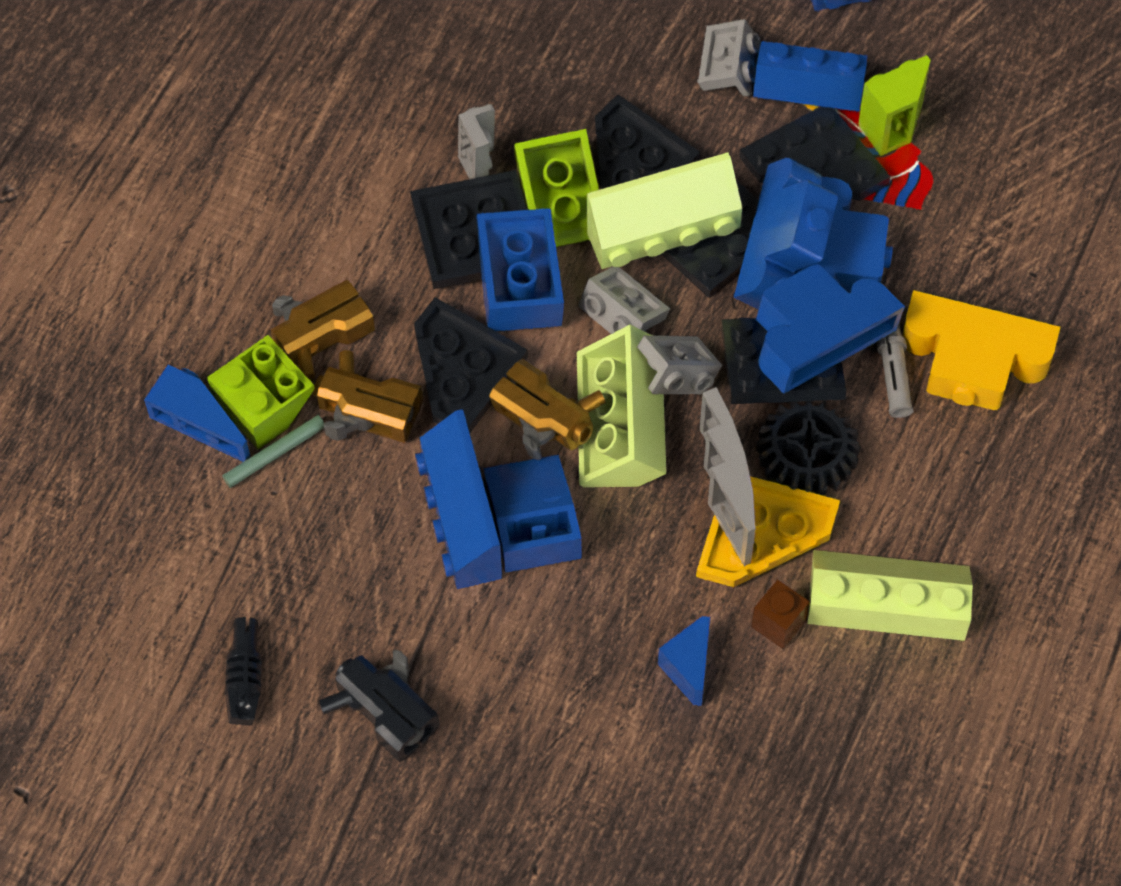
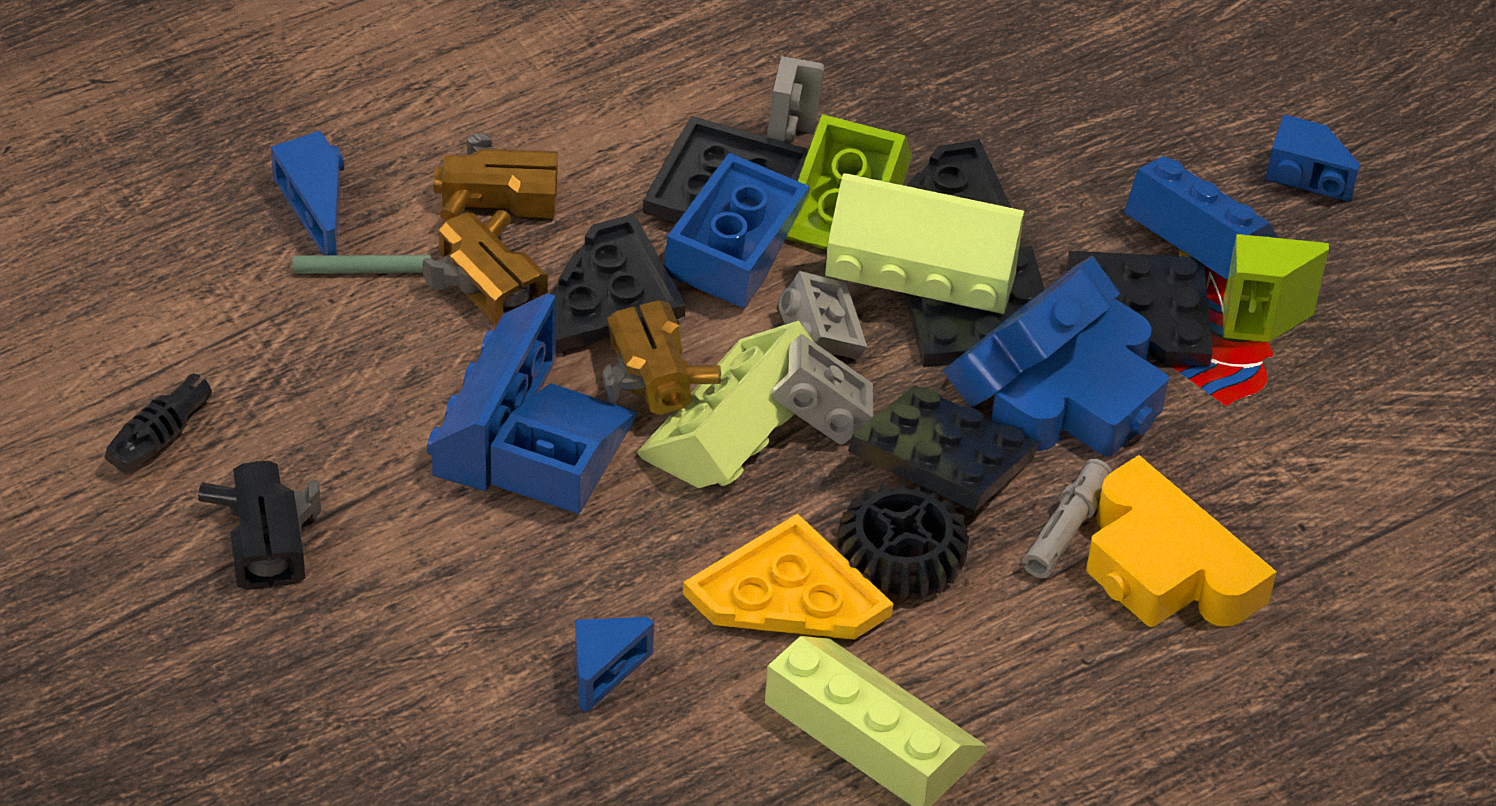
camera: 30 degrees right, 15 degrees down
(261, 391) = (390, 201): lime slope -> none
(729, 57) = (1117, 165): light grey bracket -> none
(729, 475) = (778, 502): light grey slope -> none
(780, 614) = (735, 667): reddish brown brick -> none
(819, 324) = (999, 418): blue brick -> none

